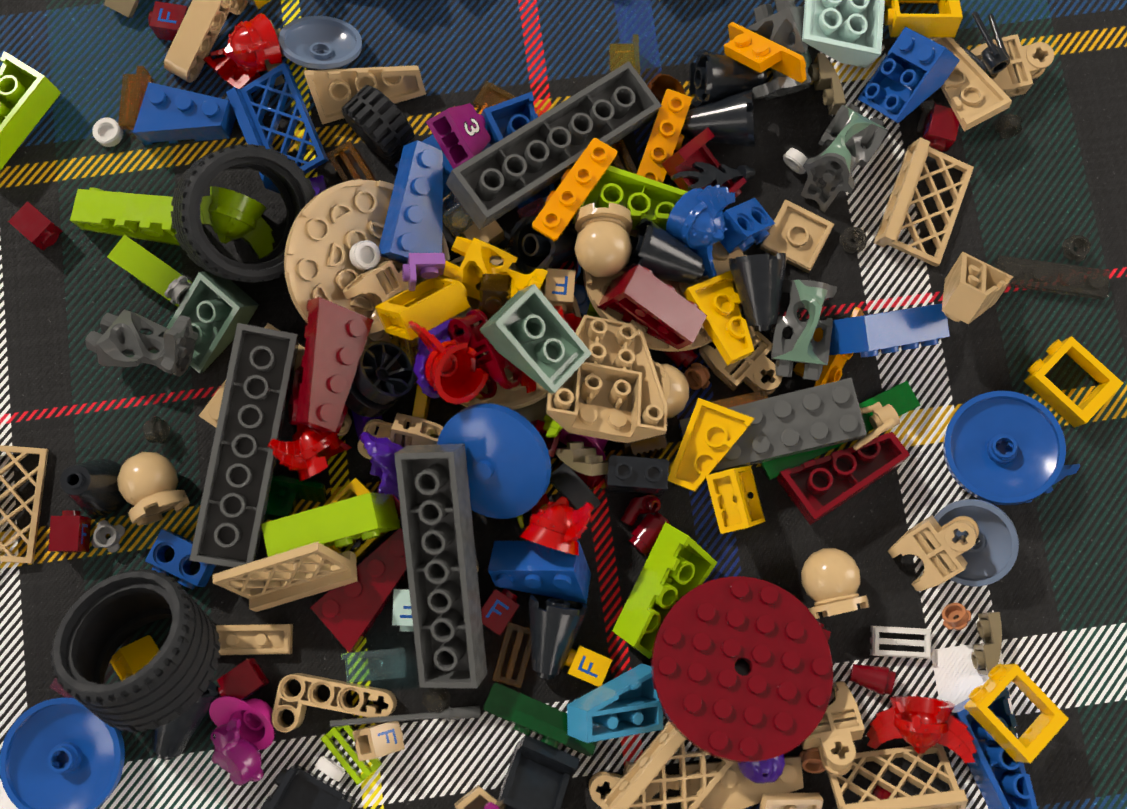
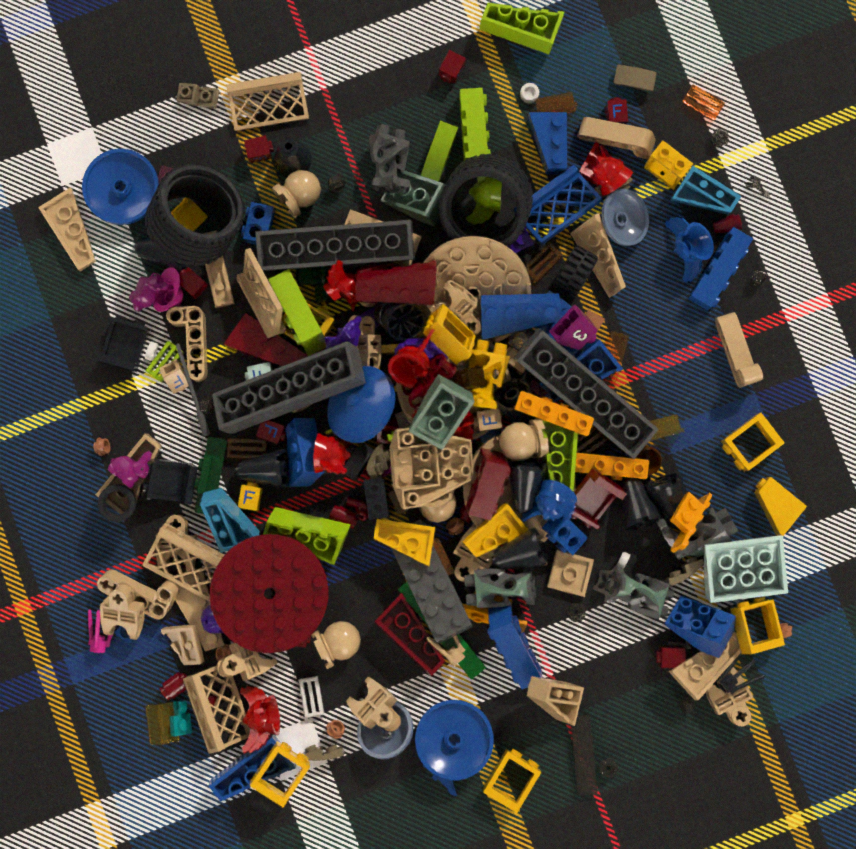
camera: 75 degrees right, 5 degrees up
(99, 536) = (258, 168): light grey plate -> none
(177, 290) = (430, 172): light grey plate -> none
(365, 255) = (477, 287): white tile -> none
(375, 664) = (221, 362): clear light blue panel -> none
(424, 265) = (478, 330): medium lavender bracket -> none
(712, 174) = (595, 503): black piece -> none
(731, 501) = (384, 566): yellow window -> none
(873, 678) = (283, 682): dark red cone -> none
(906, 188) = (619, 640): tan fence -> none

